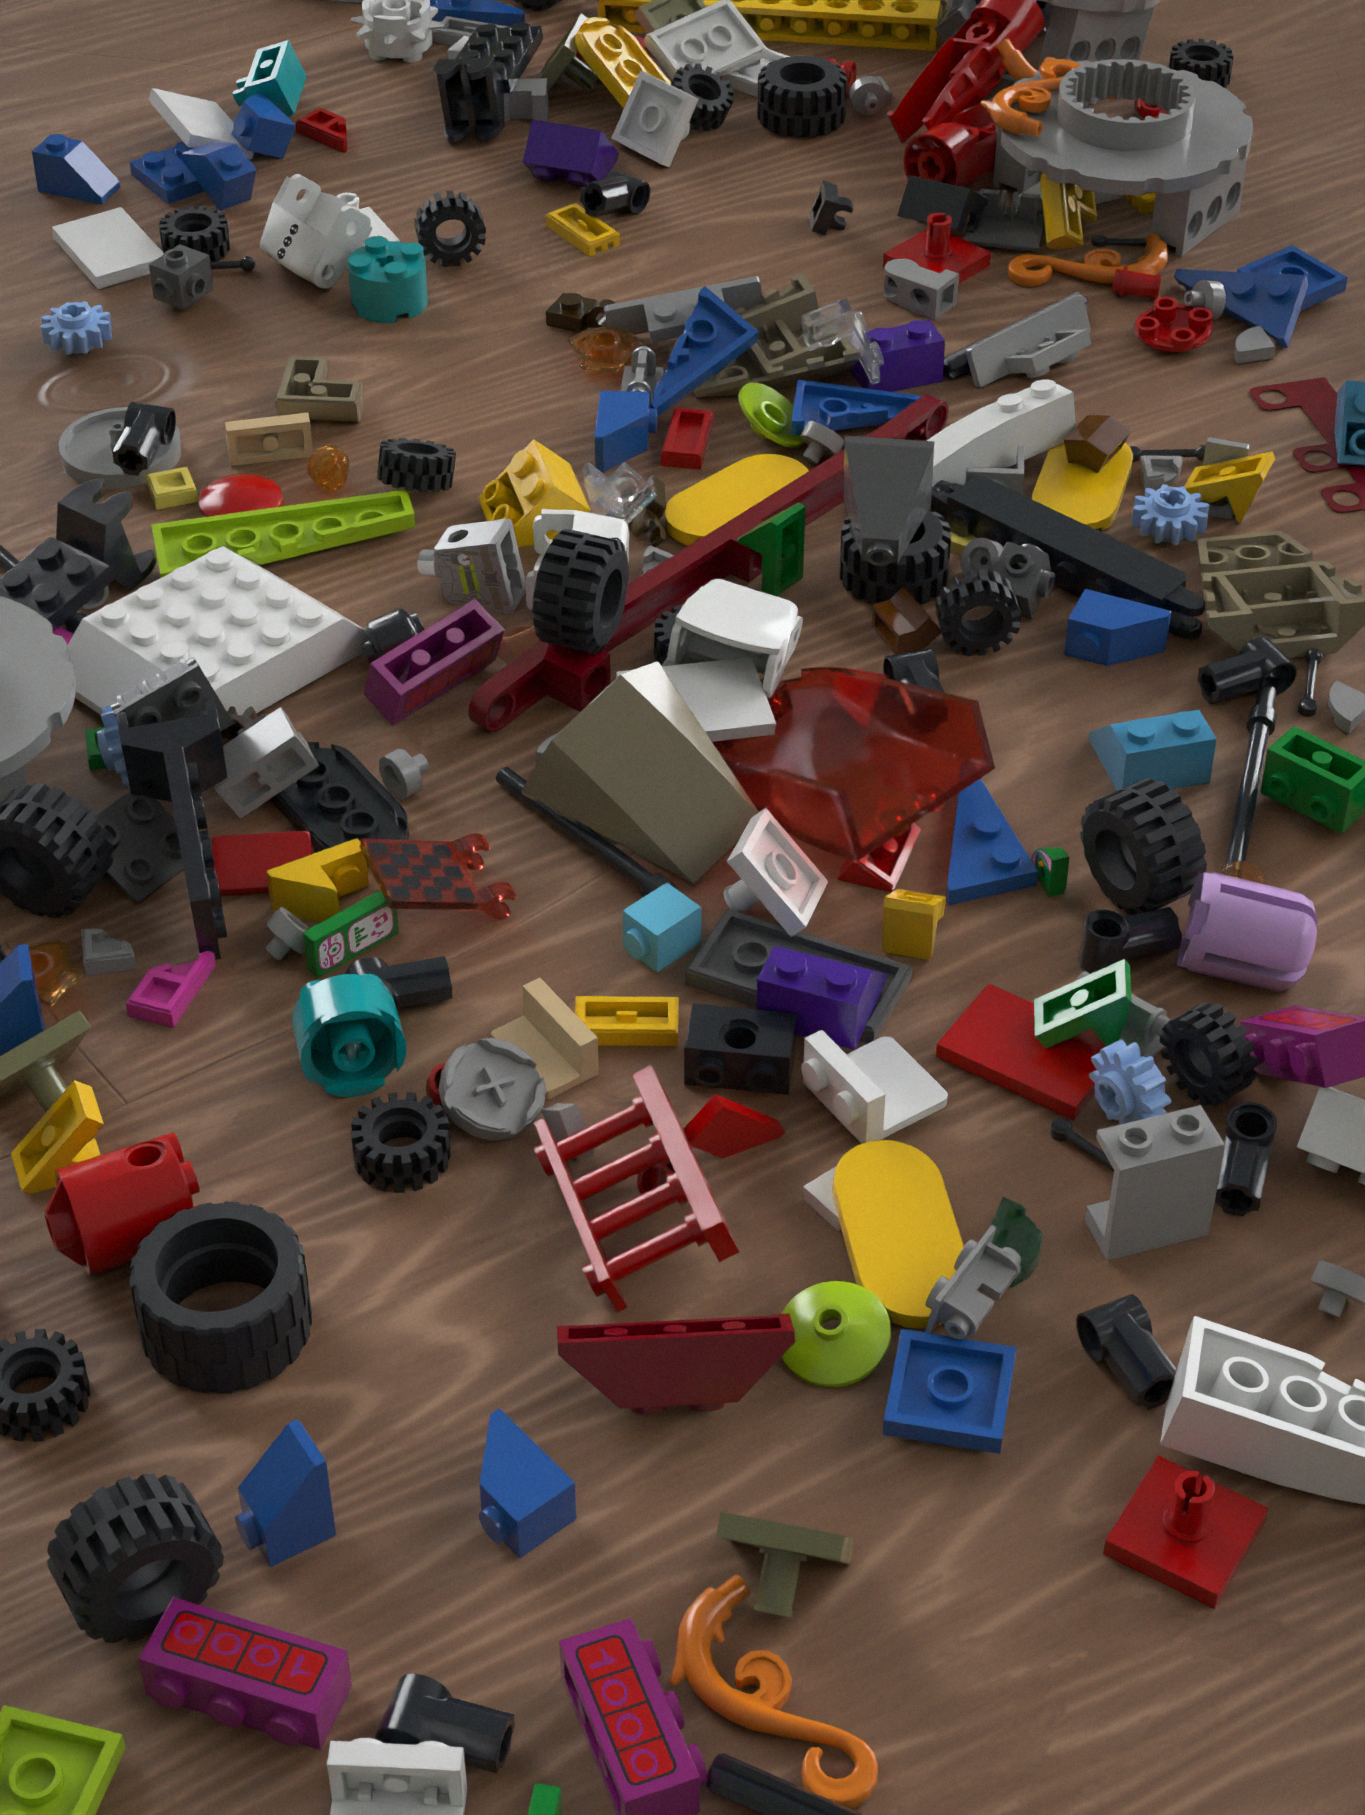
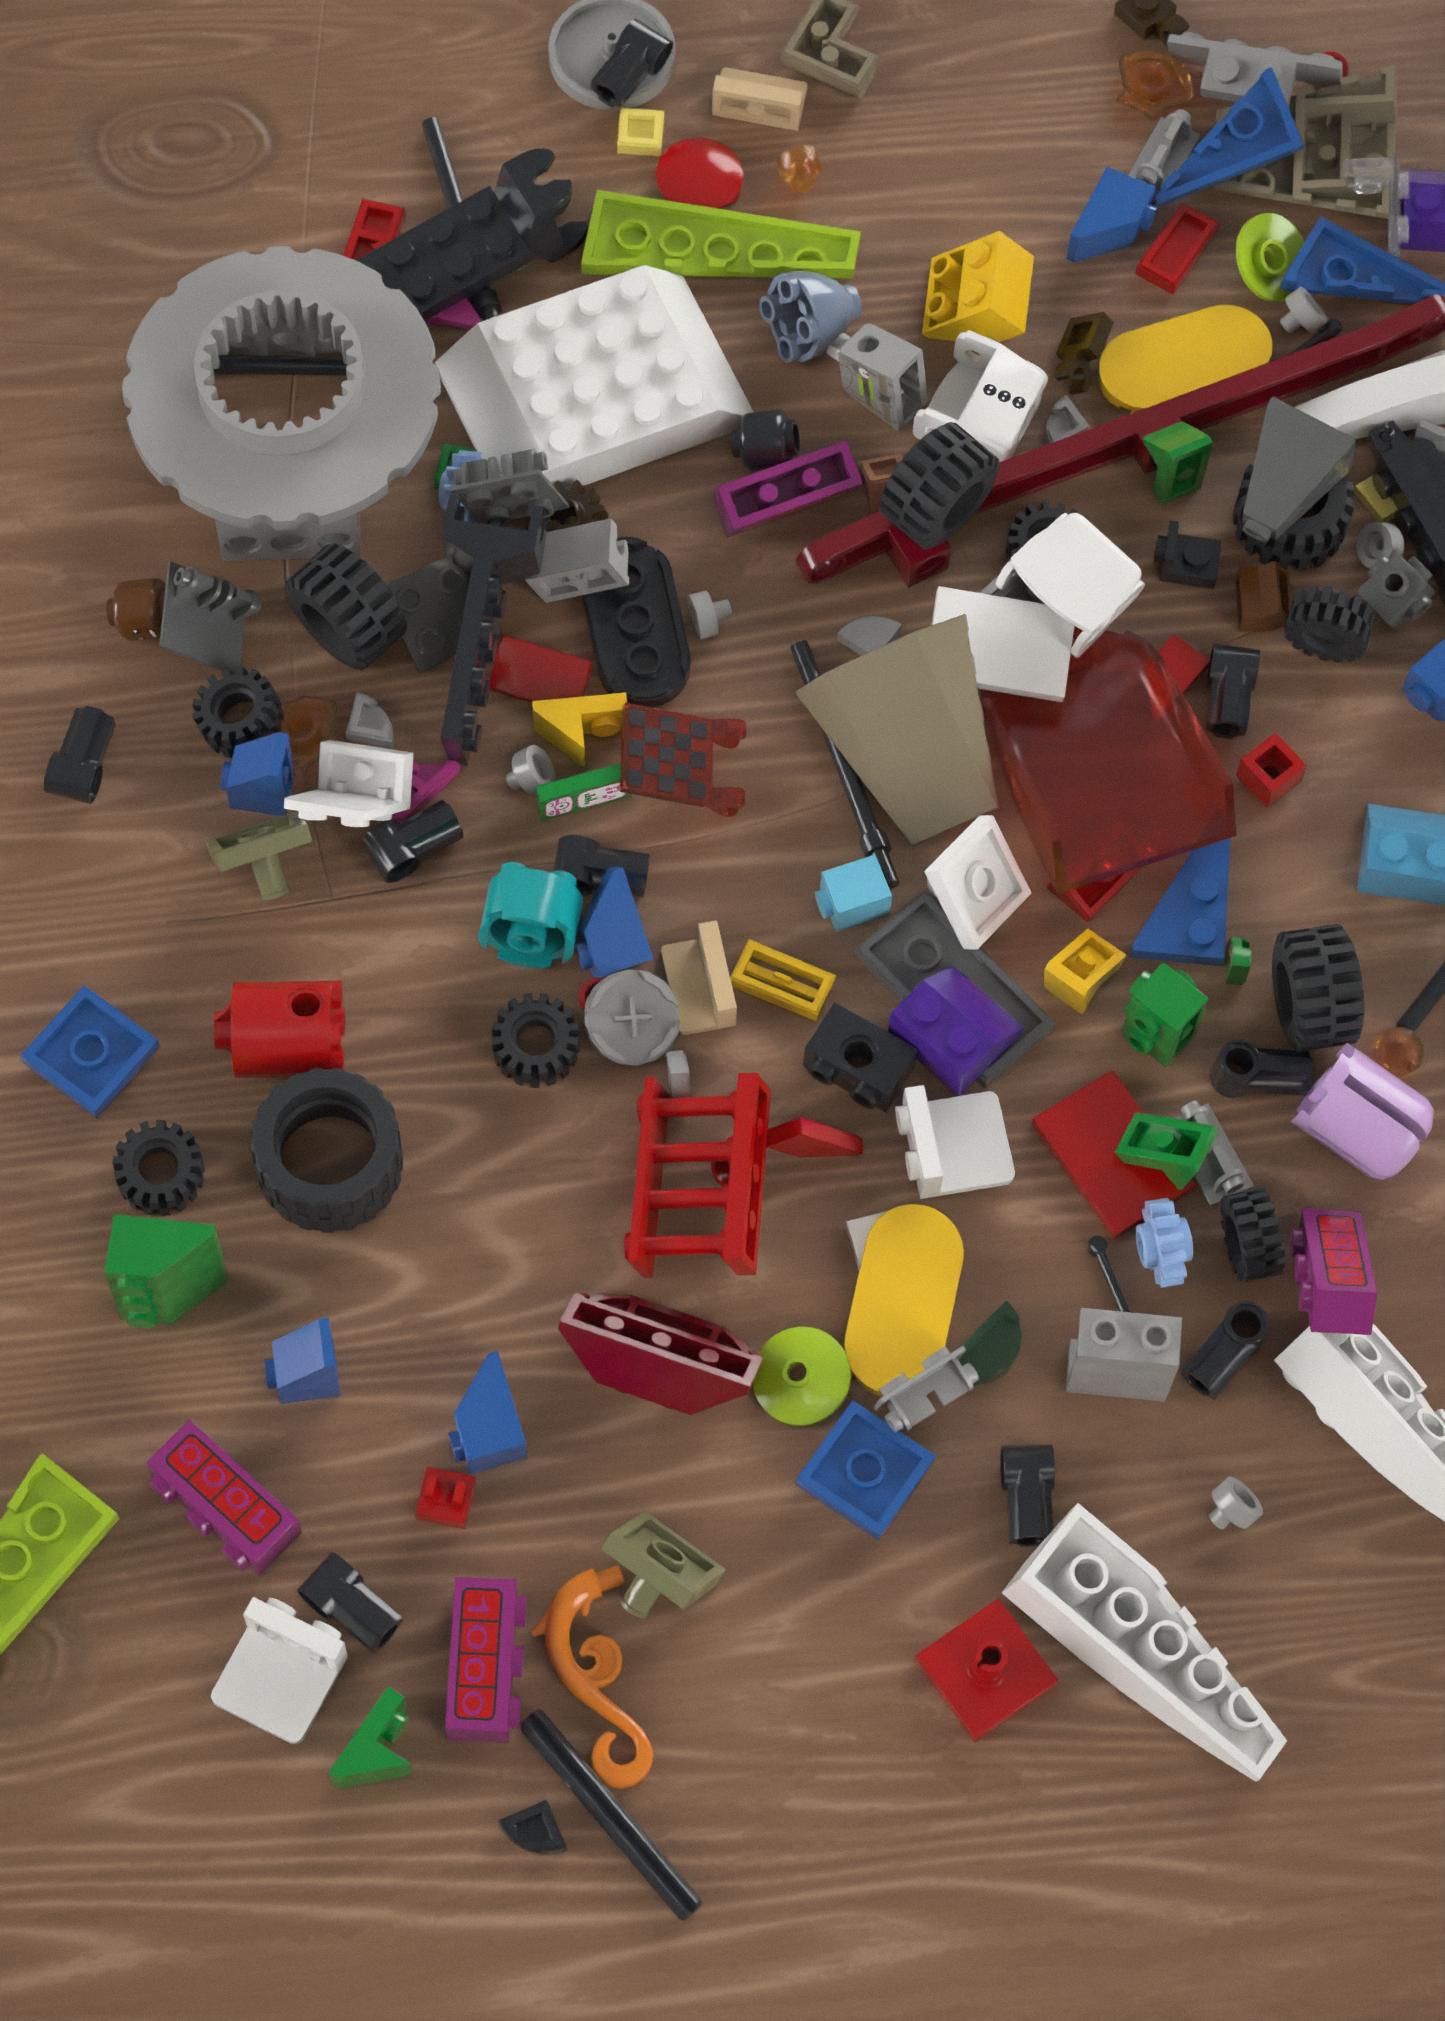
camera: 20 degrees right, 25 degrees up
(59, 1139) = (257, 933): yellow slope -> none
(79, 1434) = (161, 1268): none -> green slope
(117, 981) = (357, 784): none -> white bracket
(132, 1554) = (171, 1377): black tyre -> none
(186, 1030) = (403, 845): none -> black piece
(385, 547) = (808, 313): none -> sand blue piece
(416, 465) = (882, 201): black tyre -> none
(436, 1015) = (611, 929): none -> blue slope
(505, 1585) = (445, 1497): none -> red tile
(620, 495) = (1053, 320): clear bracket -> none
(824, 619) = (1187, 558): none -> black bracket
(1002, 723) = (1271, 758): none -> red plate
(1012, 913) = (1163, 1013): none -> green brick

